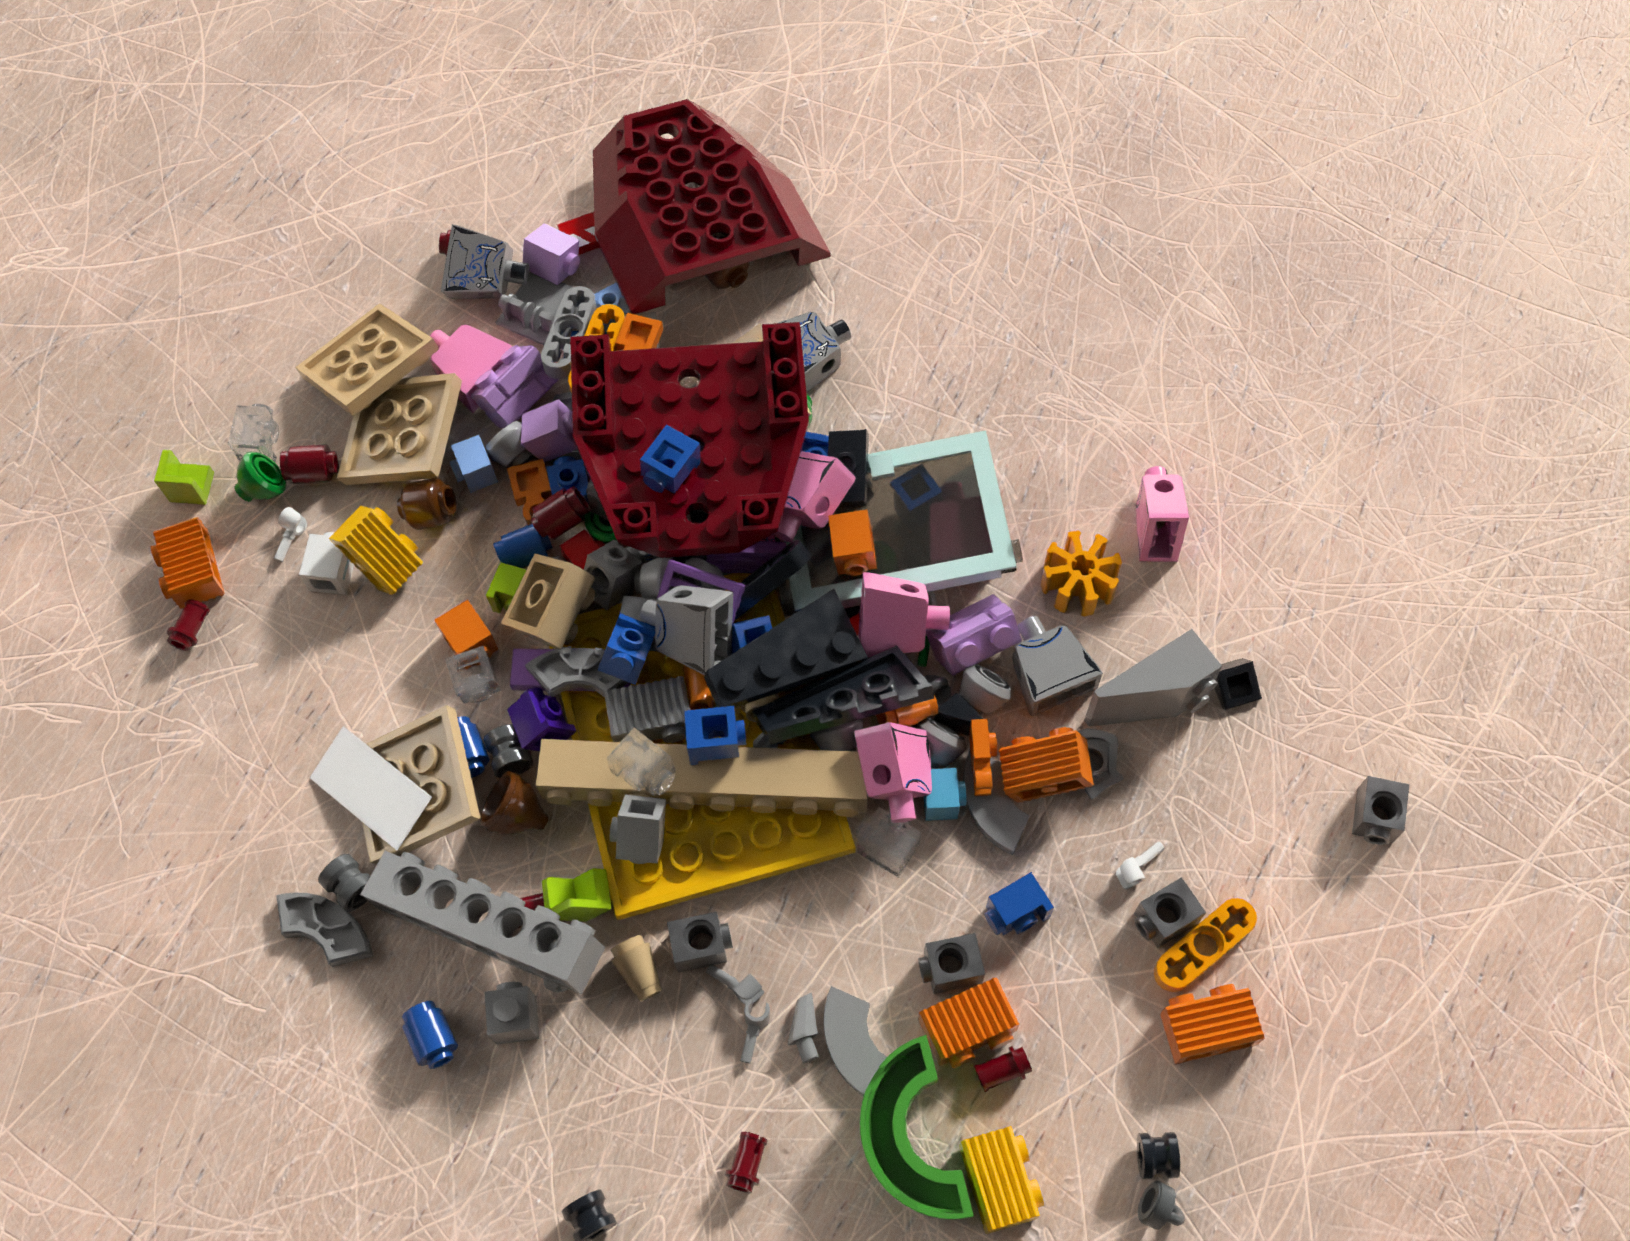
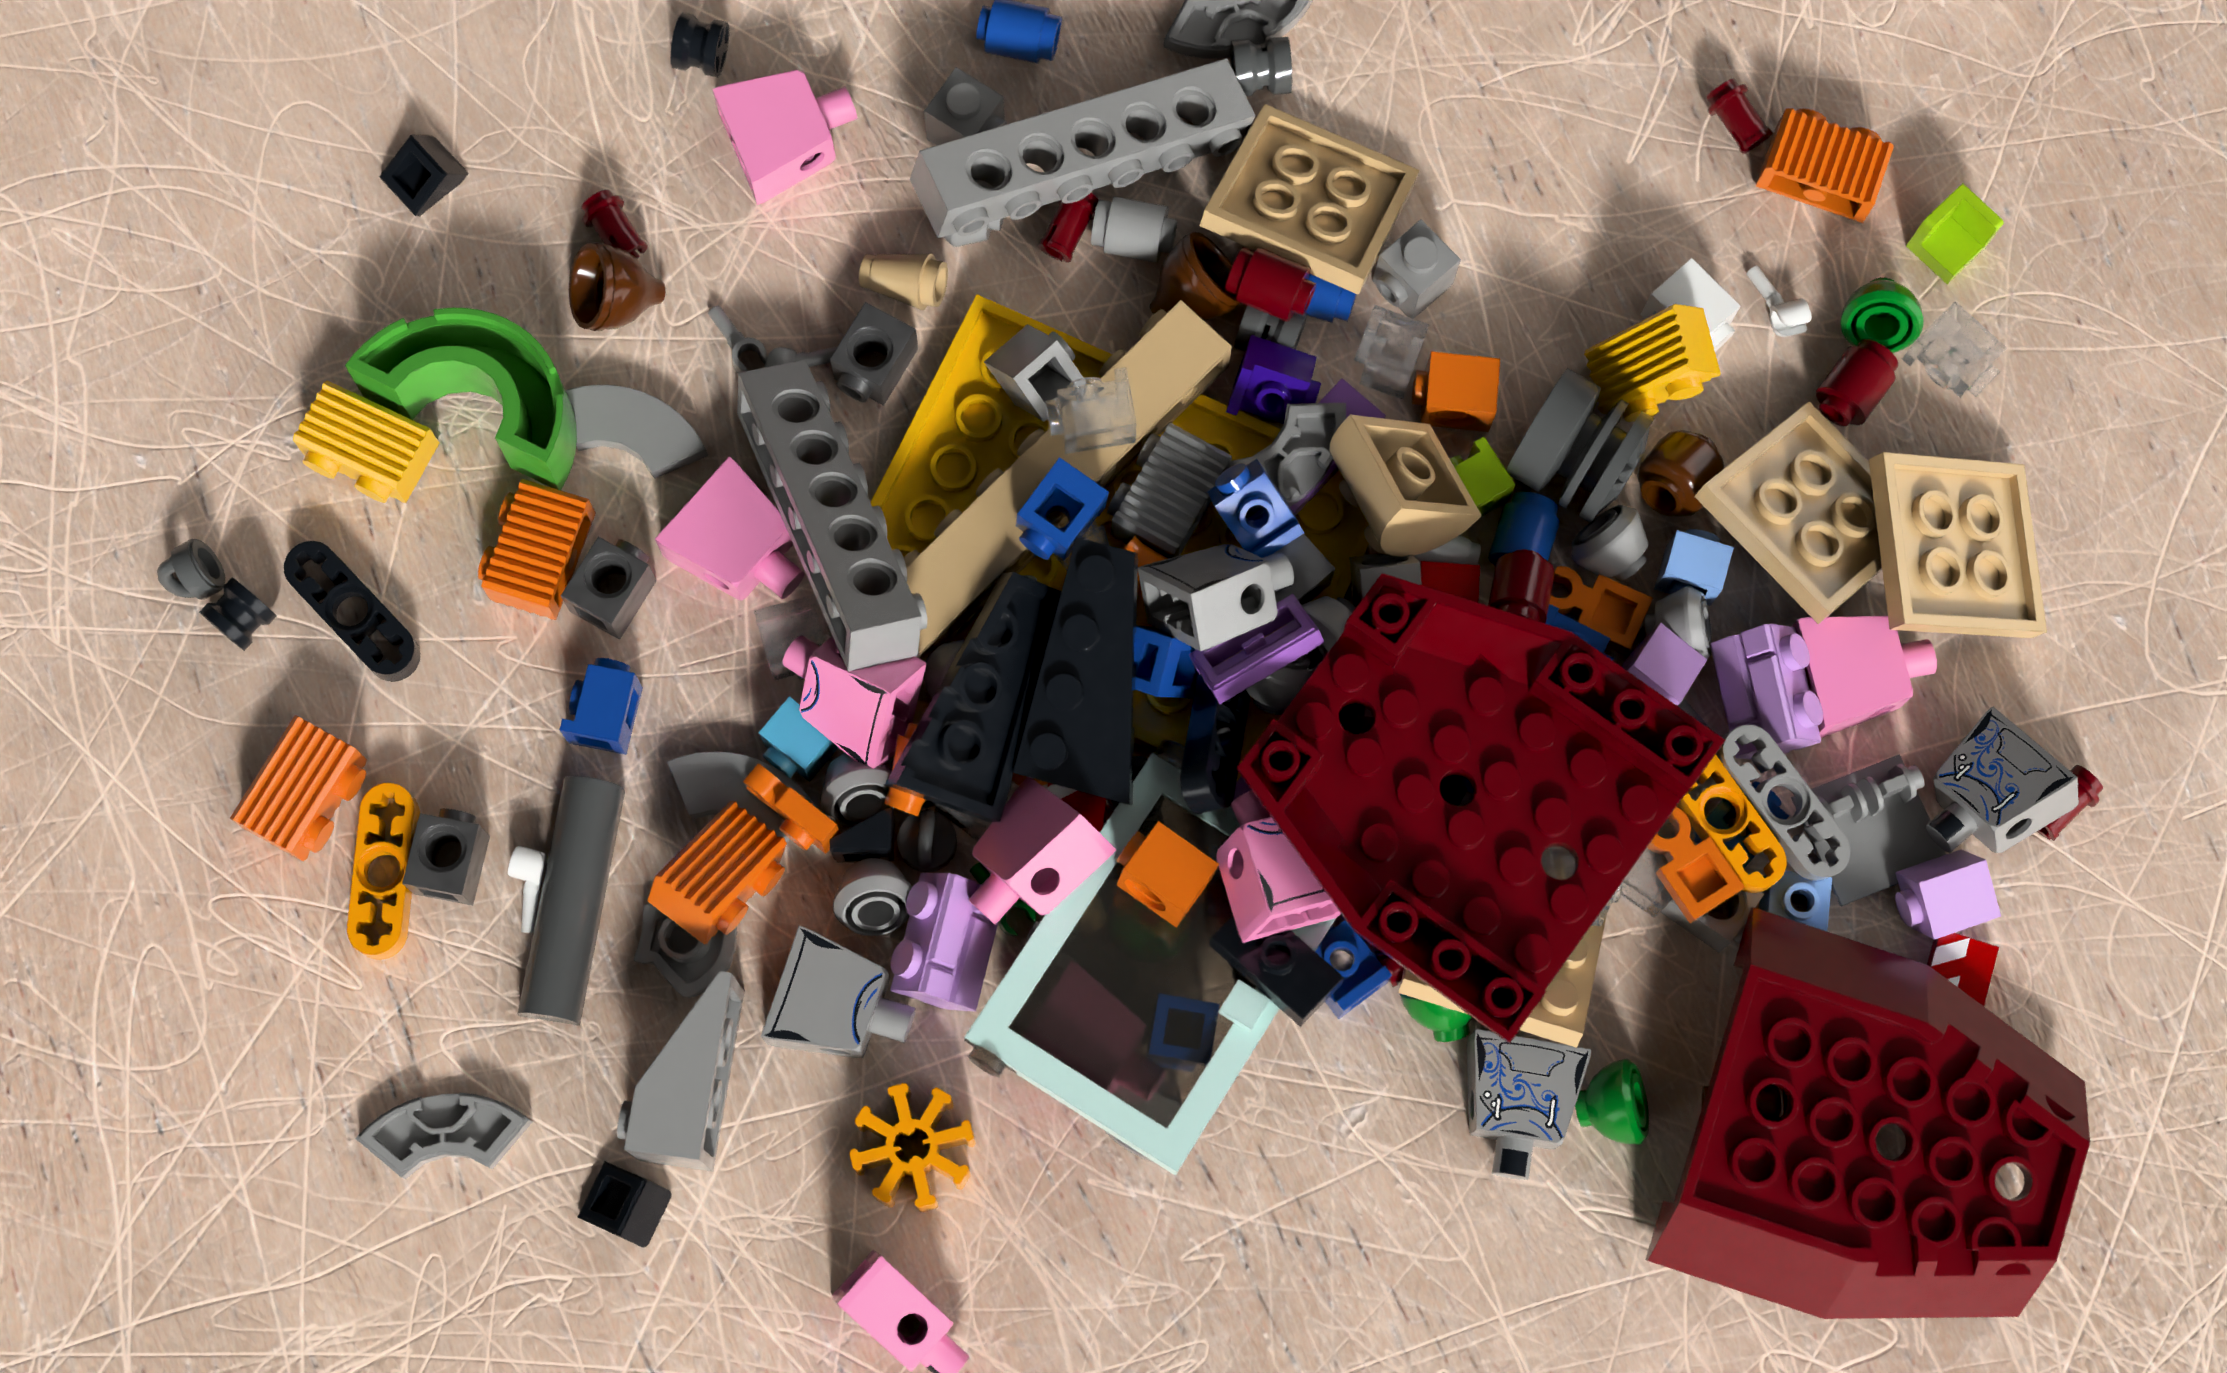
camera: 125 degrees right, 10 degrees up
(370, 788) = (1351, 158): white sticker -> none
(410, 700) = (1415, 270): none -> light grey brick
(452, 548) = (1580, 445): none -> dark grey wheel
(485, 754) = (1271, 283): none -> dark red brick
(492, 507) = (1612, 544): none -> light grey cone
(505, 867) = (1133, 229): none -> light grey brick
(578, 897) = (1034, 269): lime panel -> none
(604, 1116) = (781, 129): none -> bright pink torso
(669, 450) = (1444, 691): blue brick -> none
(772, 309) = (1616, 1103): none -> green brick
(789, 1123) = (610, 287): none -> reddish brown helmet
(804, 1029) = (690, 391): light grey bar -> none
(835, 849) = (830, 515): none -> light grey brick
(866, 924) = (732, 537): none -> bright pink torso
(1003, 1068) = (460, 551): dark red pin -> none
(1083, 1130) = (353, 587): none -> black beam
(1126, 836) = (571, 900): none -> dark grey brick
(1289, 797) = (441, 1128): none -> light grey tile
(1390, 797) = (350, 1218): flat silver brick -> none

